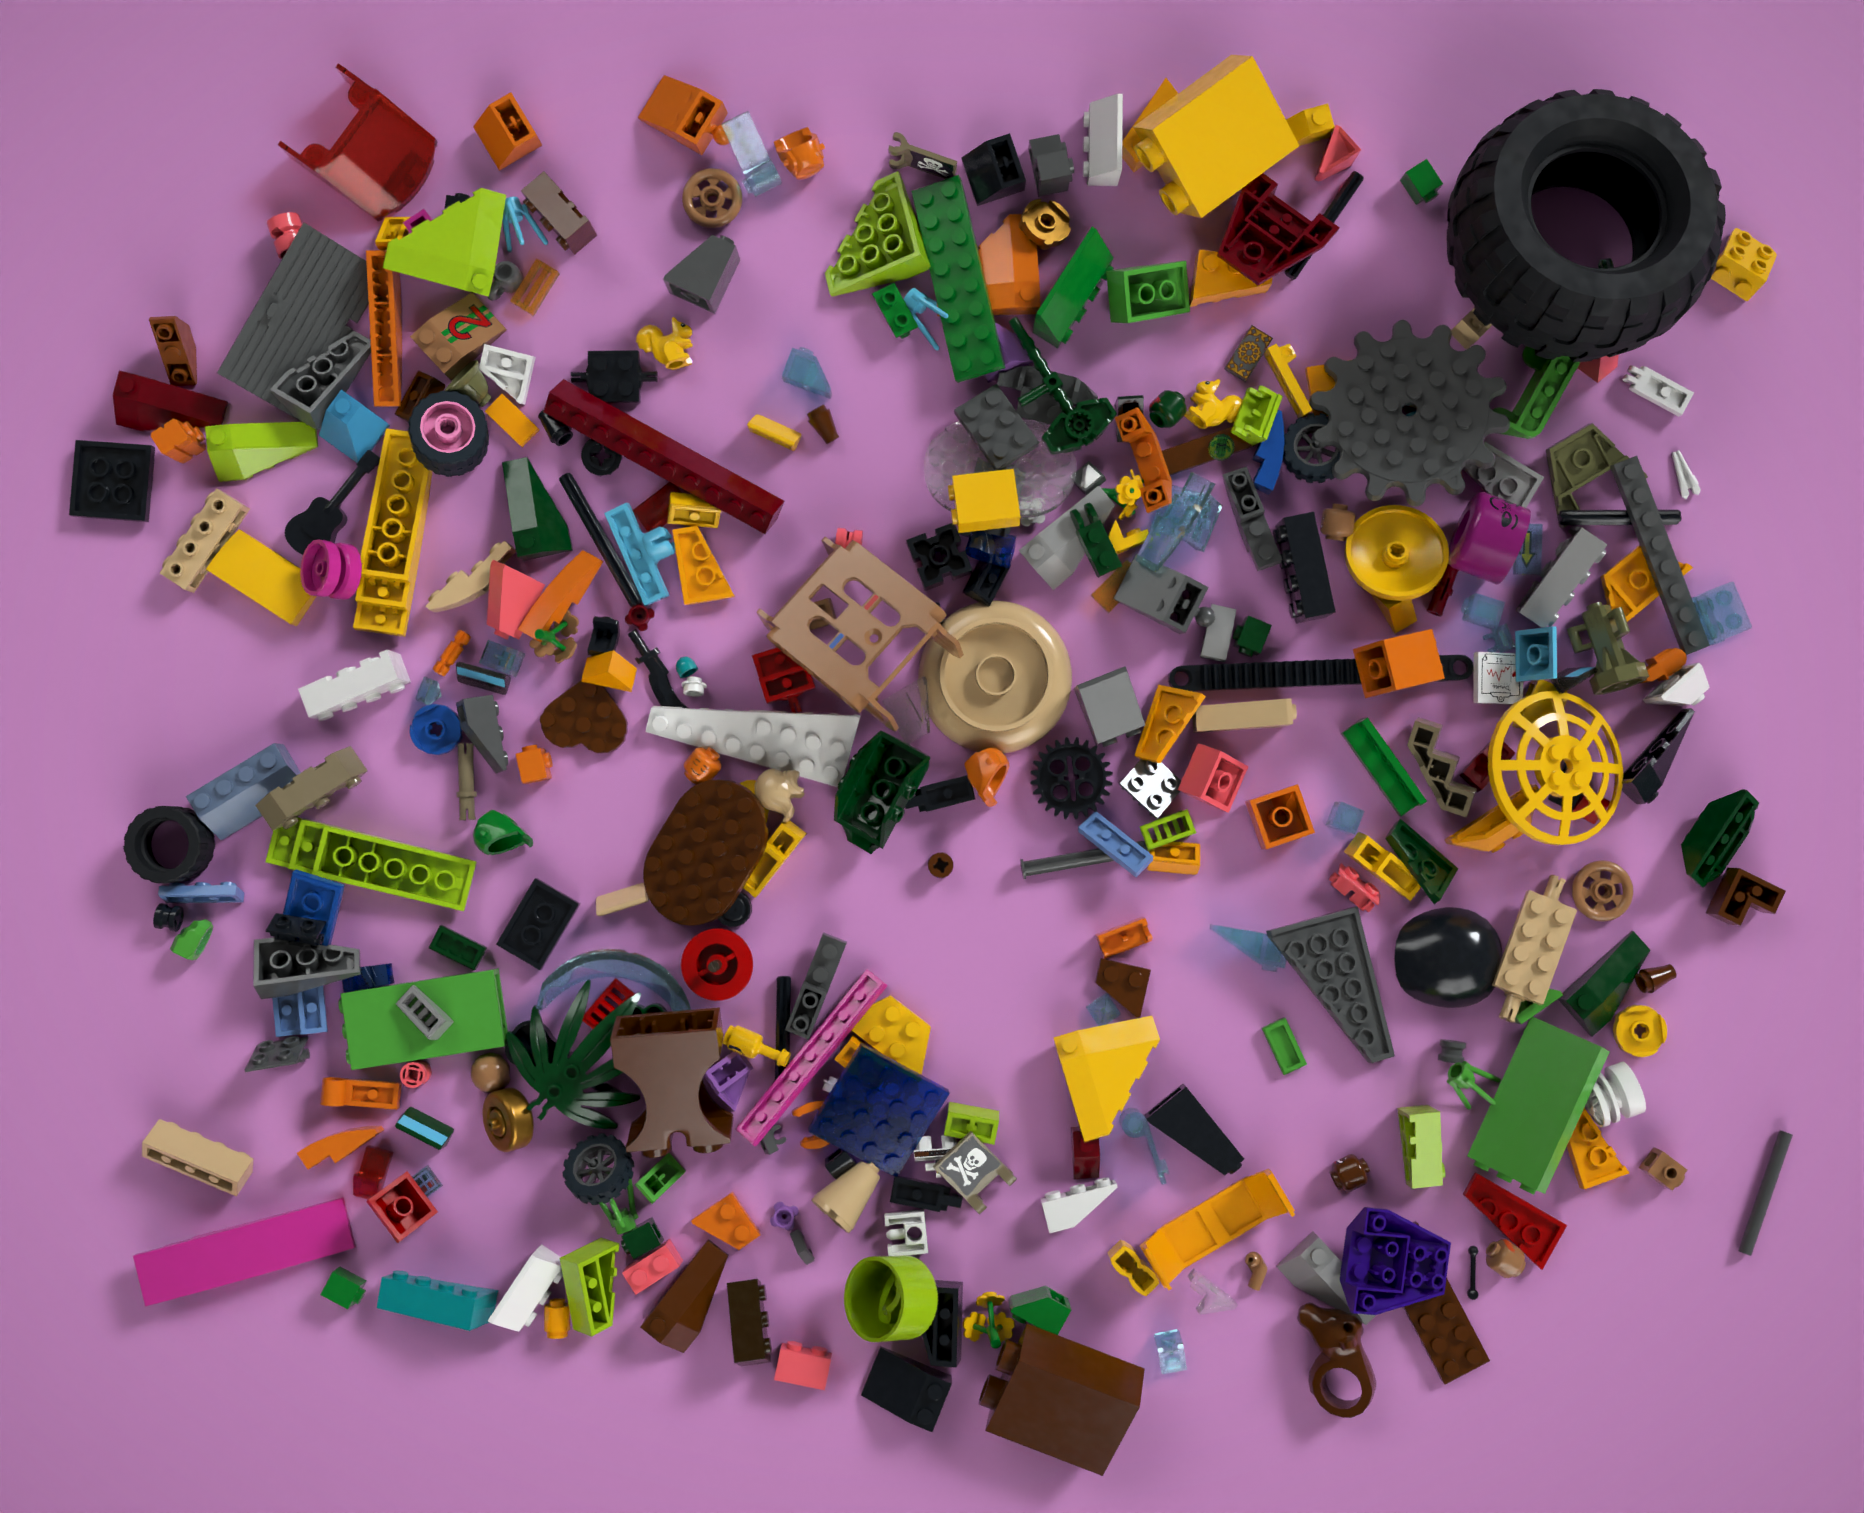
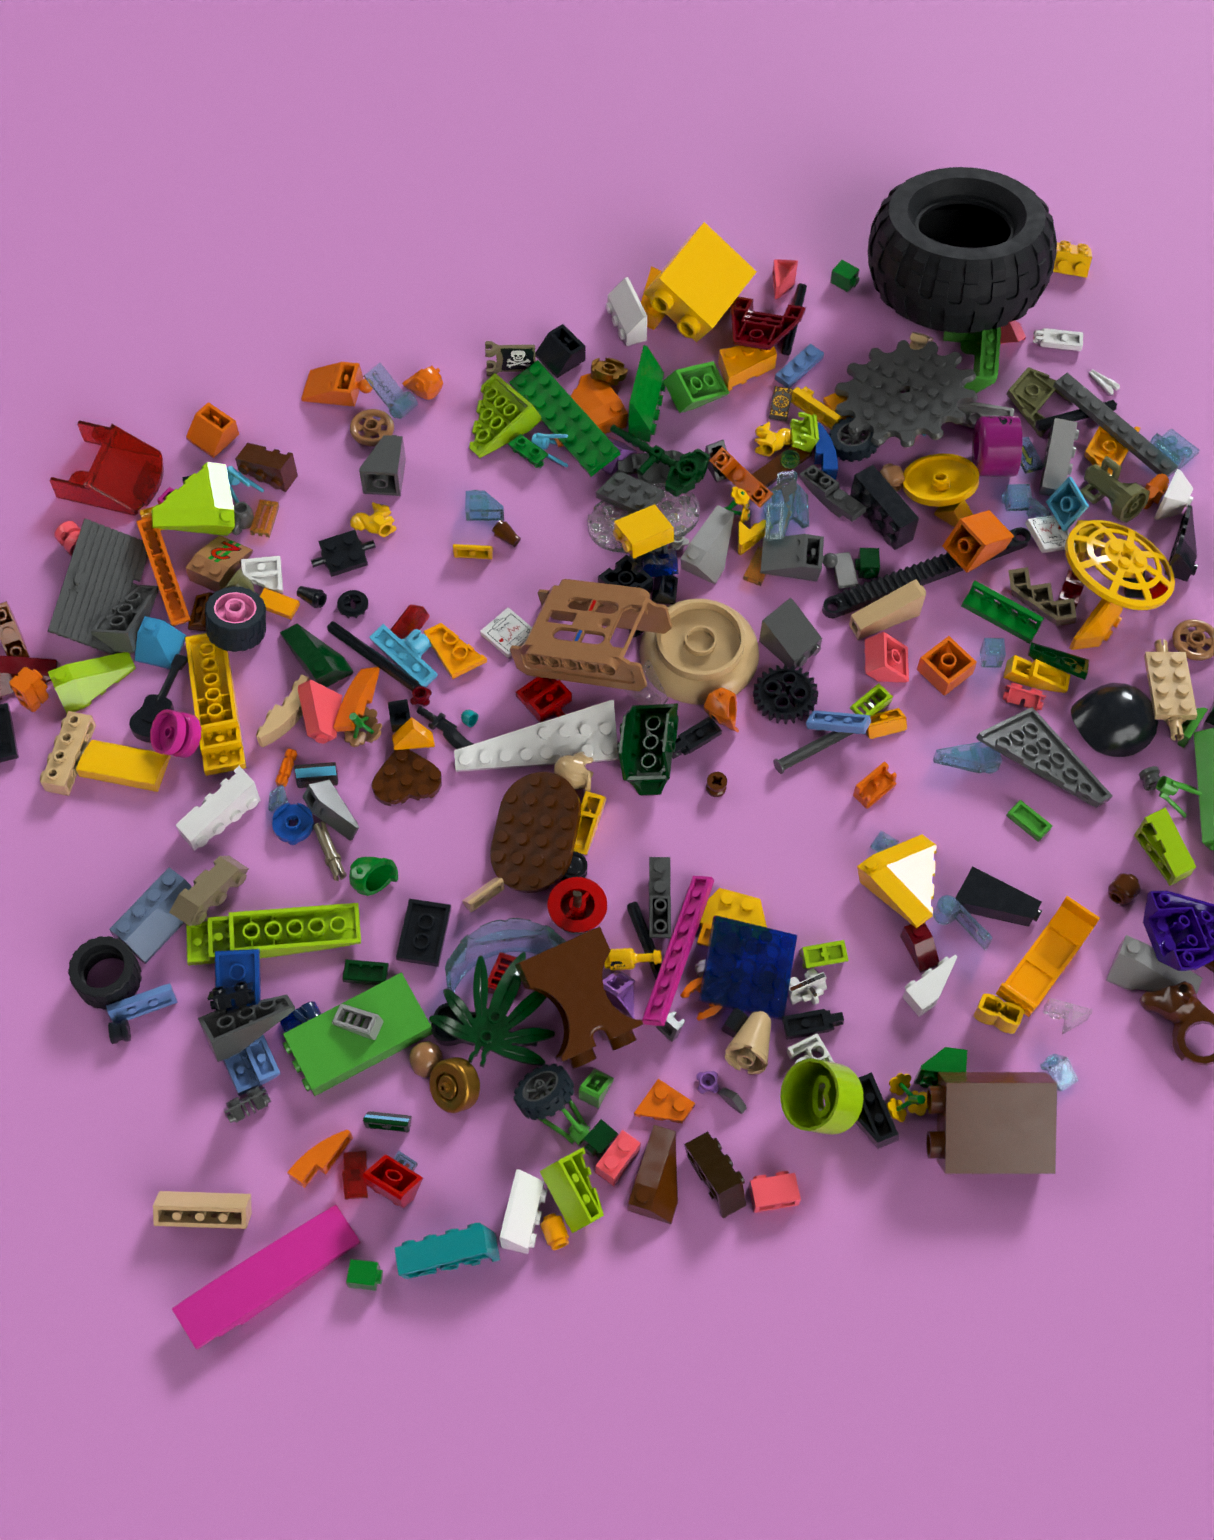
camera: 20 degrees left, 25 degrees down
(192, 939) = (144, 1042): bright green rock -> none
(360, 1093) = (324, 1111): orange plate -> none
(420, 1070) = (367, 1082): coral wheel -> none
(502, 658) = (328, 753): clear light blue slope -> none
(534, 764) = (379, 820): orange brick -> none
(663, 456) = (399, 586): dark red brick -> none
(692, 511) = (433, 614): yellow slope -> none
(693, 687) = (480, 728): white plate -> none
(702, 765) = (507, 775): orange head -> none
(774, 565) = (506, 631): none -> white tile
(907, 1388) = (866, 1178): black slope -> none
(971, 1168) = (840, 986): flag -> none
(1050, 165) = (597, 337): dark grey brick -> none
(1088, 478) = (707, 506): tile -> none
(1095, 542) = (731, 534): dark green hinge -> none
(1124, 983) = (890, 818): reddish brown wing -> none
(1151, 786) = (846, 679): hinge -> none
(1166, 720) = (835, 632): light orange wing -> none
(1167, 409) = (742, 448): dark green head -> none
(1190, 509) = (787, 489): none -> dark grey piece
(1258, 1269) = (1093, 984): medium nougat arm -> none
(1298, 303) = (799, 366): none -> medium blue plate
(1312, 124) = (763, 264): yellow slope -> none
(1442, 591) = (983, 494): dark red pin -> none
(1572, 677) = (1100, 511): clear smoke slope -> none

